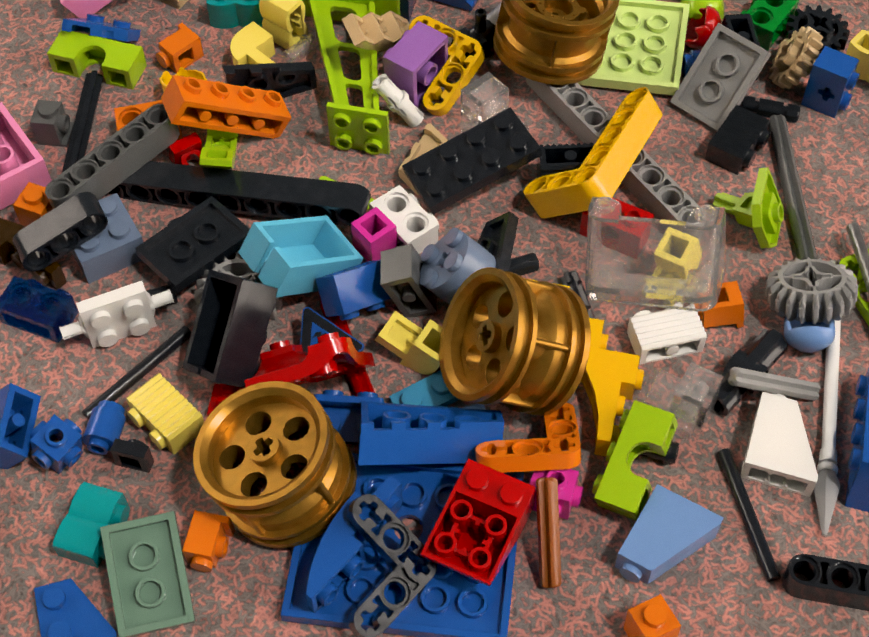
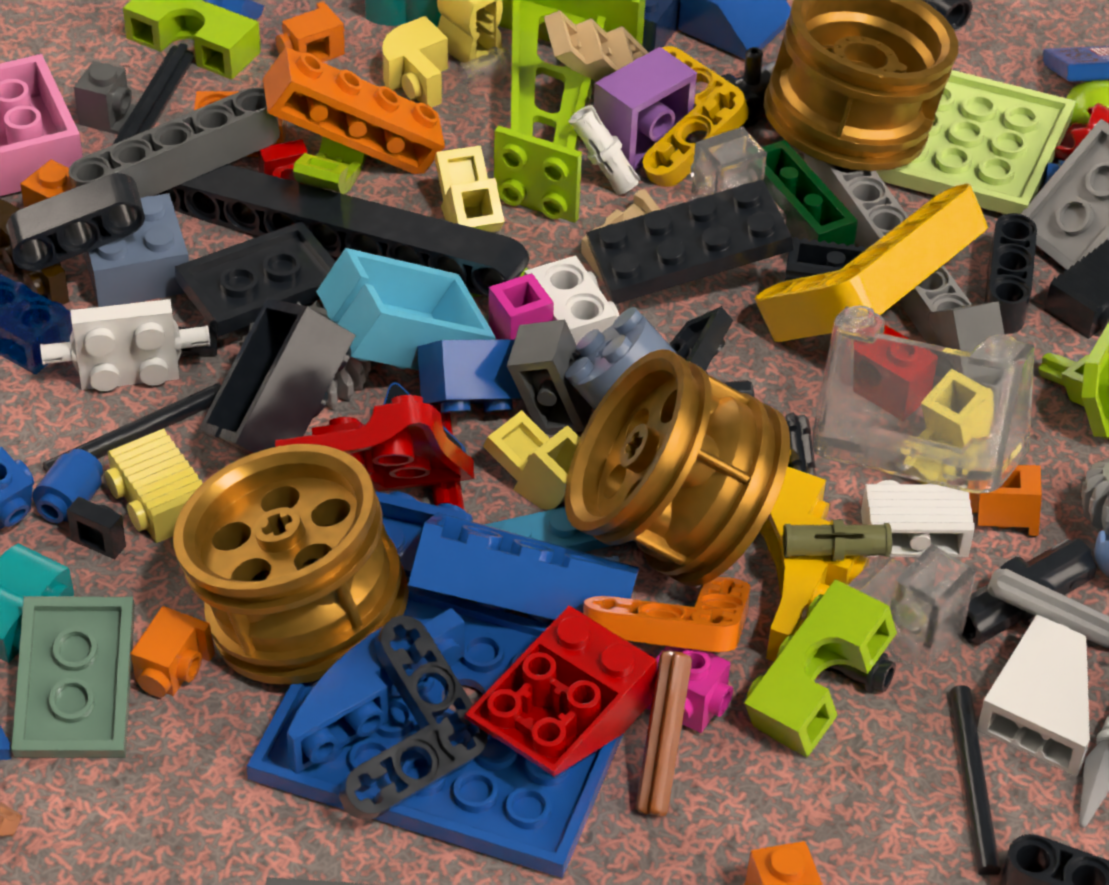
camera: 10 degrees right, 10 degrees down
(280, 77) = (453, 95): black wing -> none
(316, 155) = (467, 191): none -> light yellow brick
(544, 119) = (805, 199): none -> dark green brick
(646, 361) = (837, 540): none -> olive pin
(665, 535) = (838, 778): medium blue slope -> none
(670, 194) = (967, 325): none -> slope
(679, 139) = (1012, 268): none -> black beam

